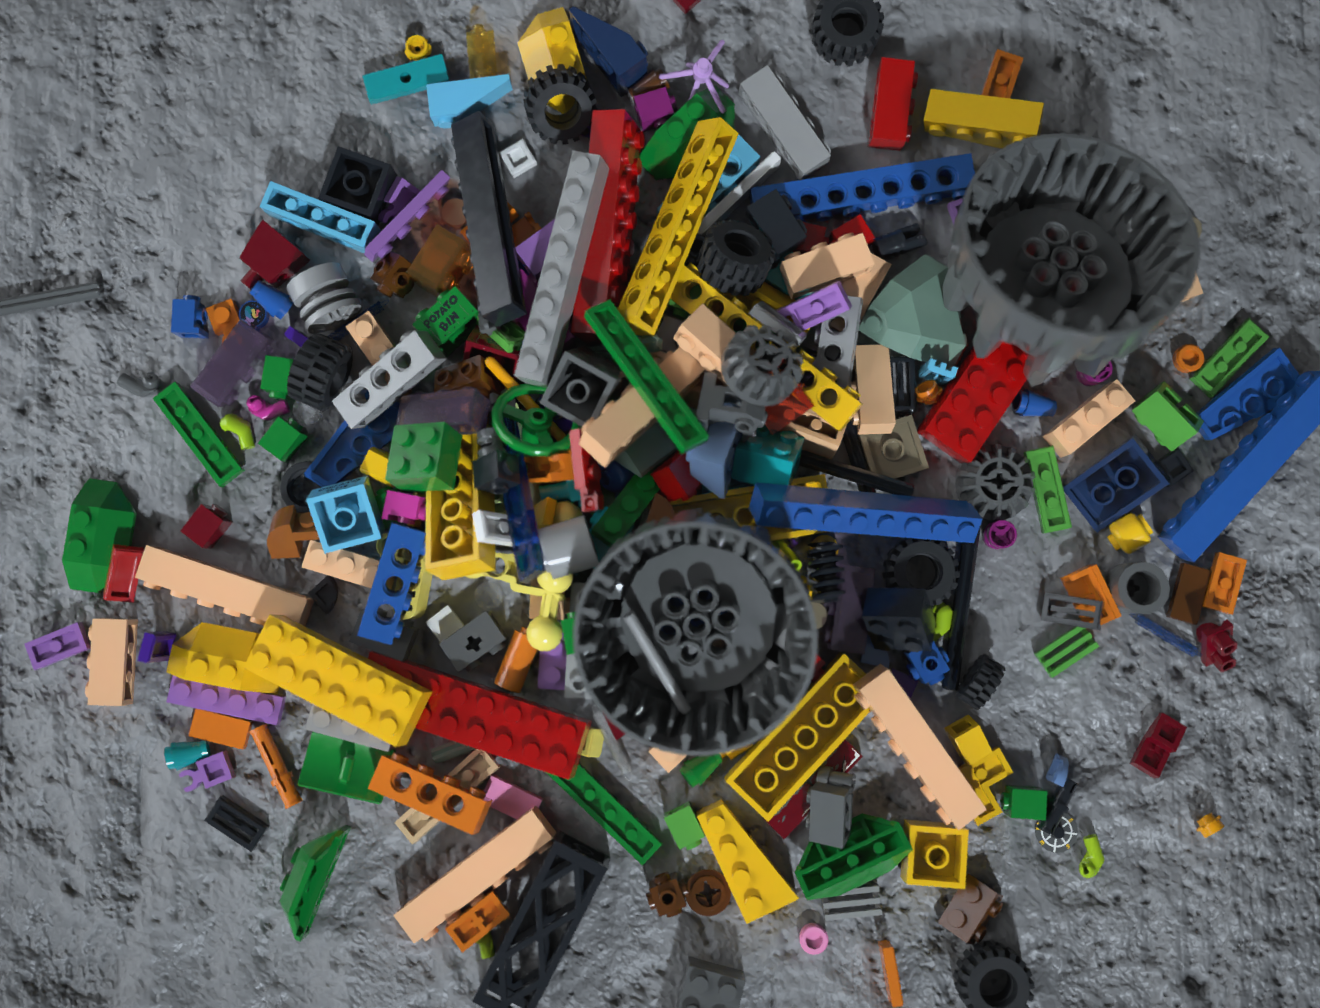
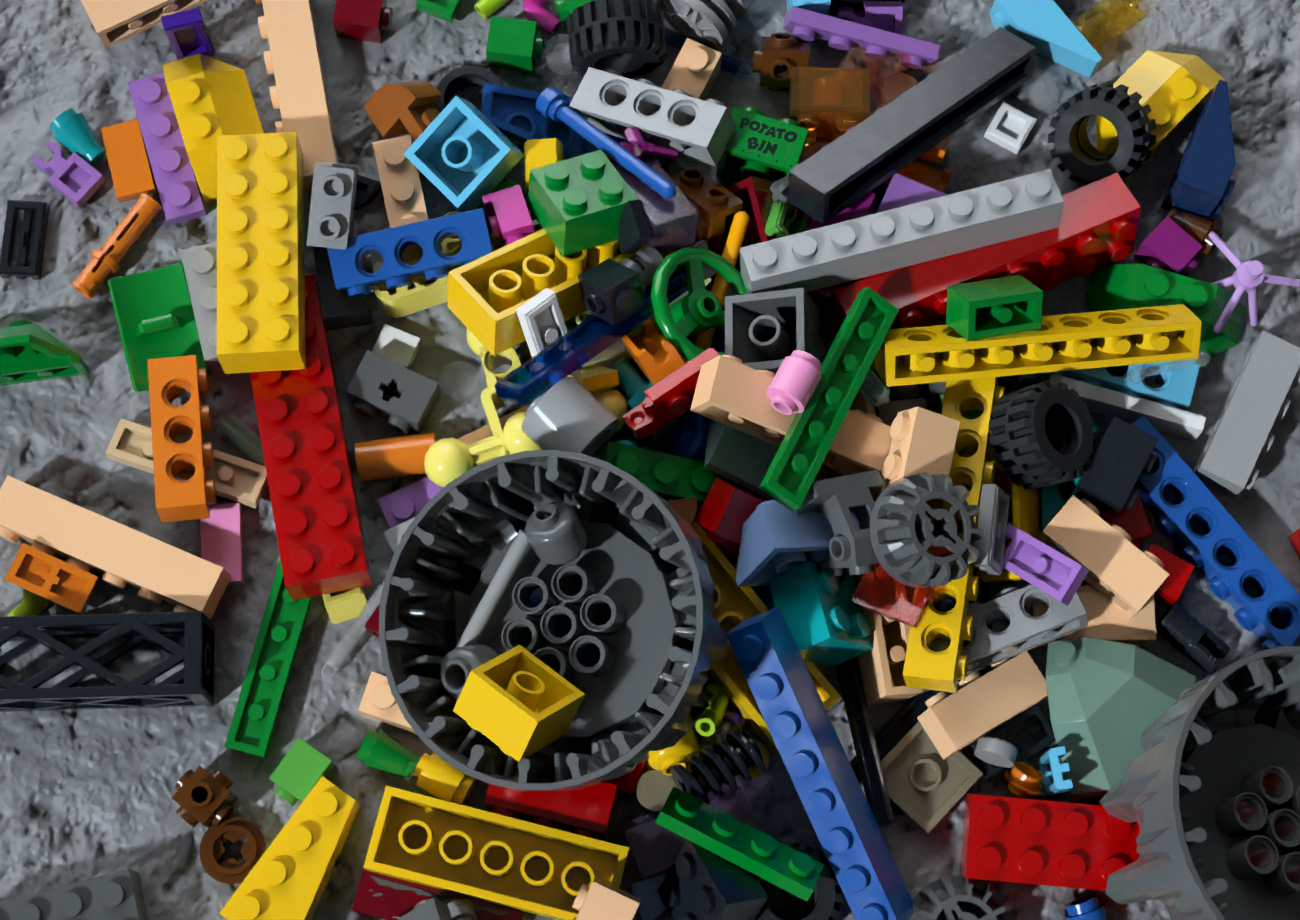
camera: 55 degrees right, 10 degrees down
(332, 617) = (332, 205): none -> light grey panel
(345, 437) = (554, 106): none -> blue piece
(406, 401) = (639, 147): none -> magenta hand
(461, 434) = (633, 227): none -> black tile
(627, 393) = (794, 382): none -> bright pink brick
(640, 239) = (994, 307): none -> green brick
(640, 597) = (556, 533): none -> dark grey head
(694, 695) = (459, 663): none -> dark grey head
(725, 177) = (1138, 374): none -> clear hinge
(735, 679) = (518, 702): none -> yellow brick
(881, 586) = (740, 844): none -> green plate
(905, 399) = (996, 751): none -> light grey tile

